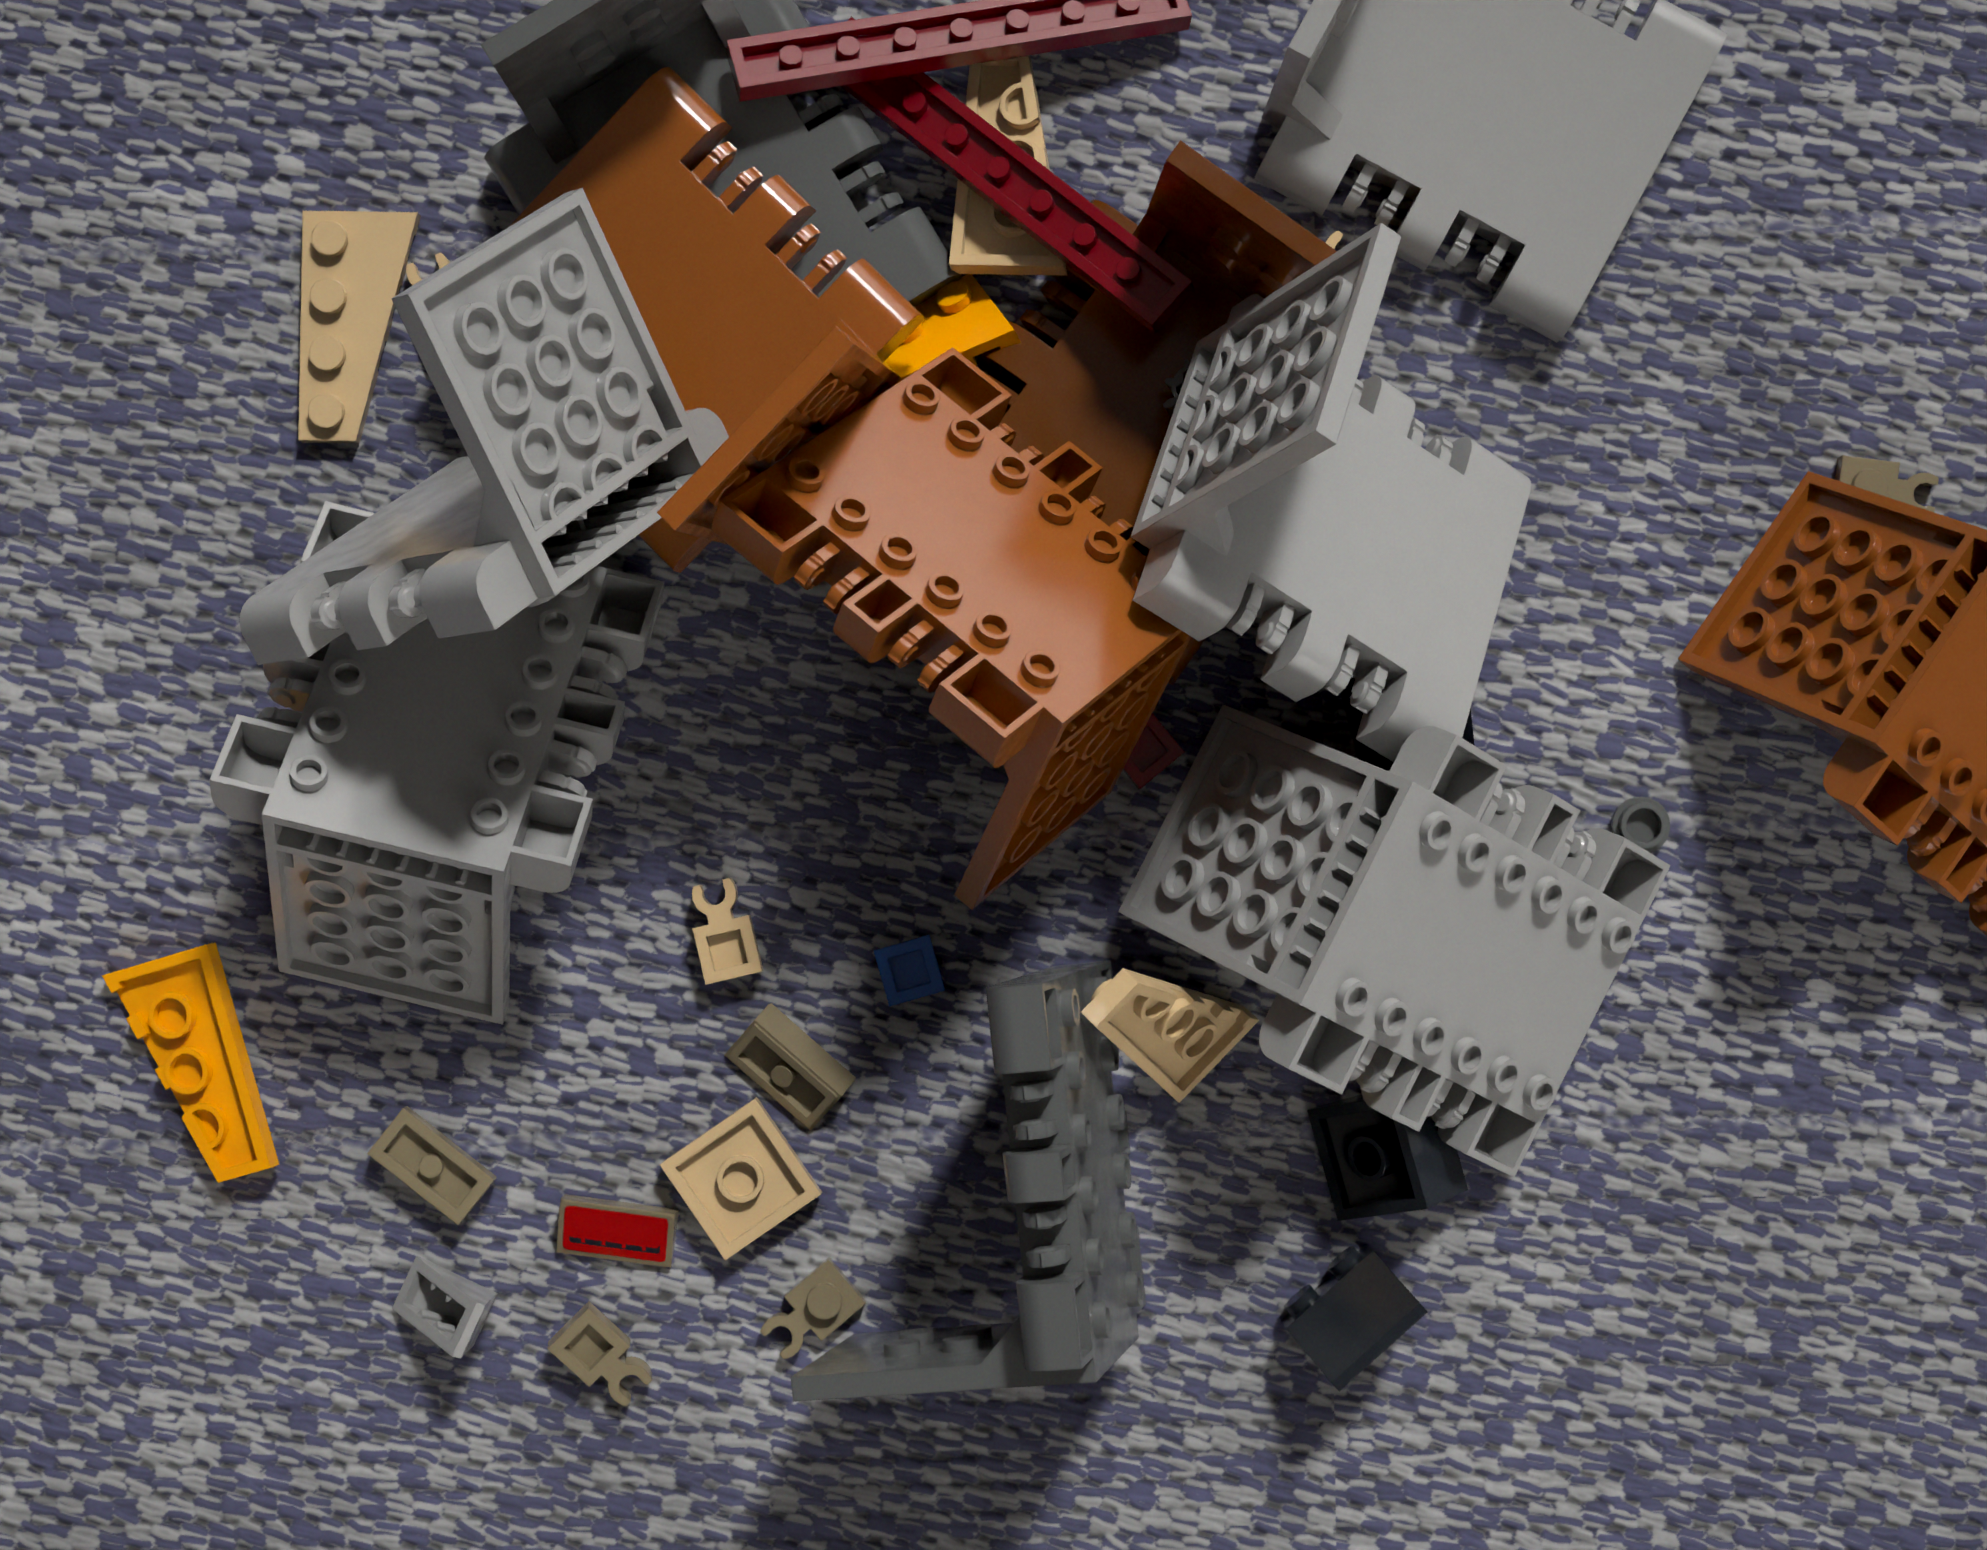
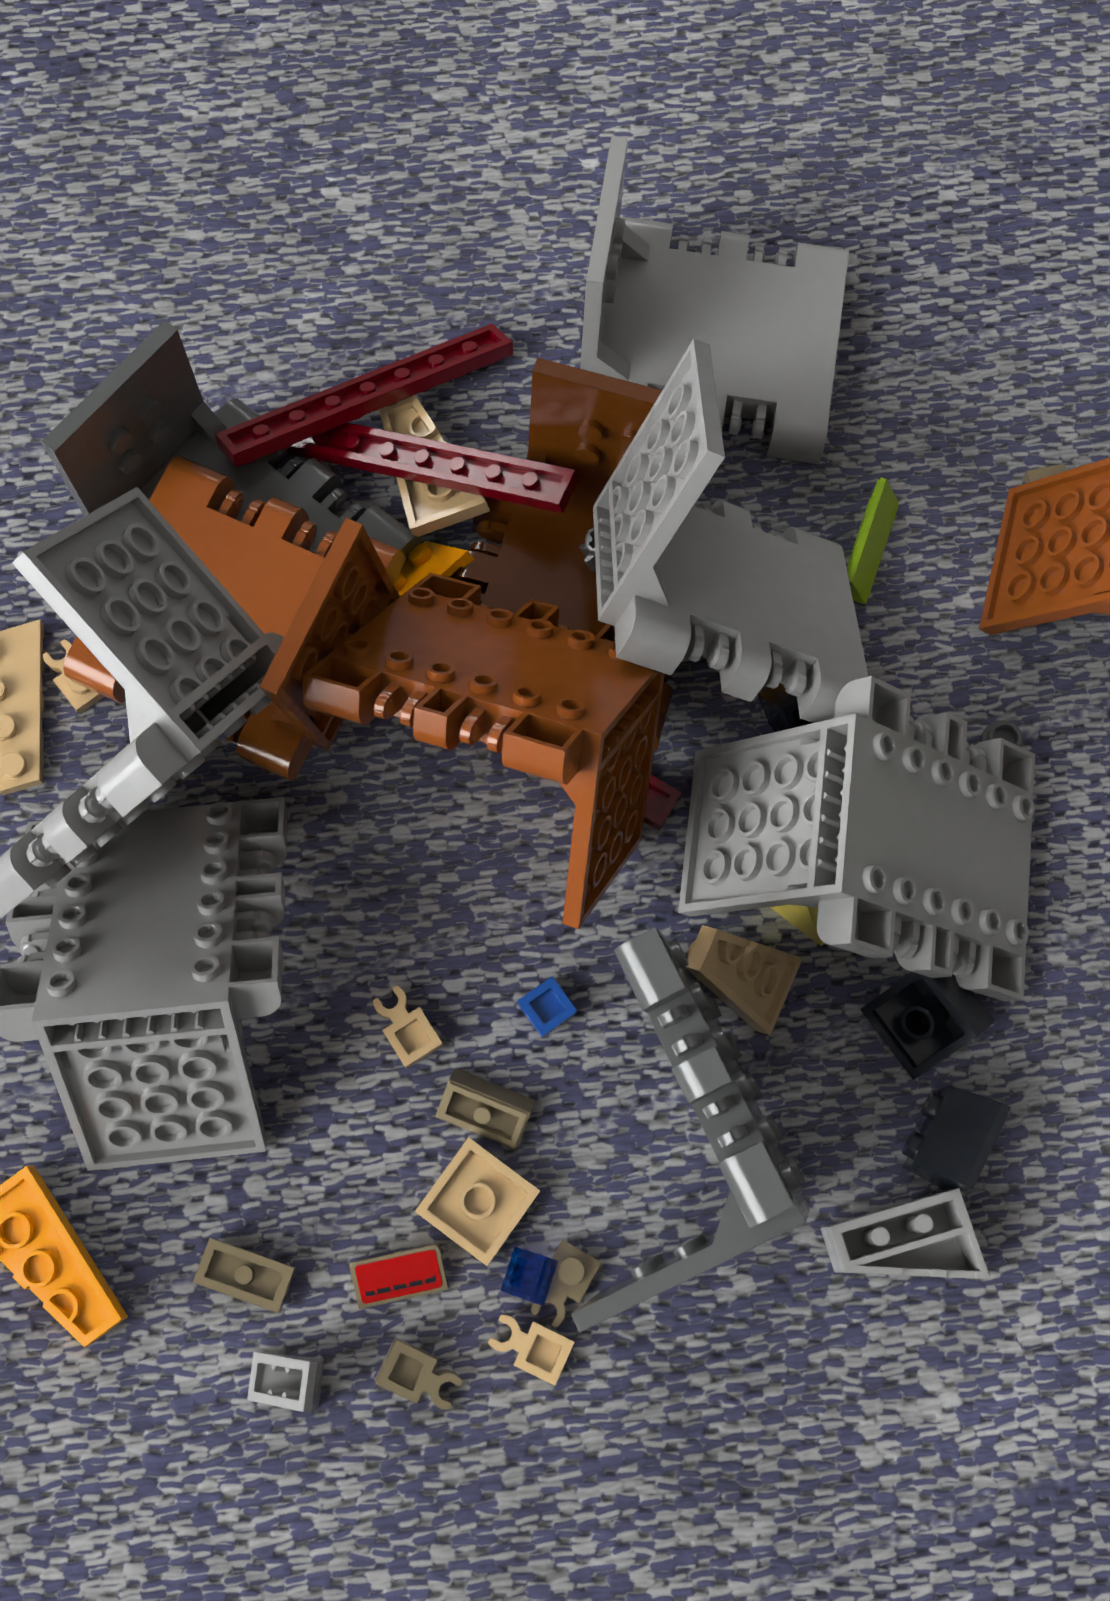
camera: 20 degrees left, 15 degrees down
(754, 1378) = (540, 1350): none -> tan plate
(772, 1288) = (529, 1276): none -> clear blue tile
(1245, 1411) = (909, 1239): none -> light grey wedge
(1580, 485) = (871, 540): none -> lime slope

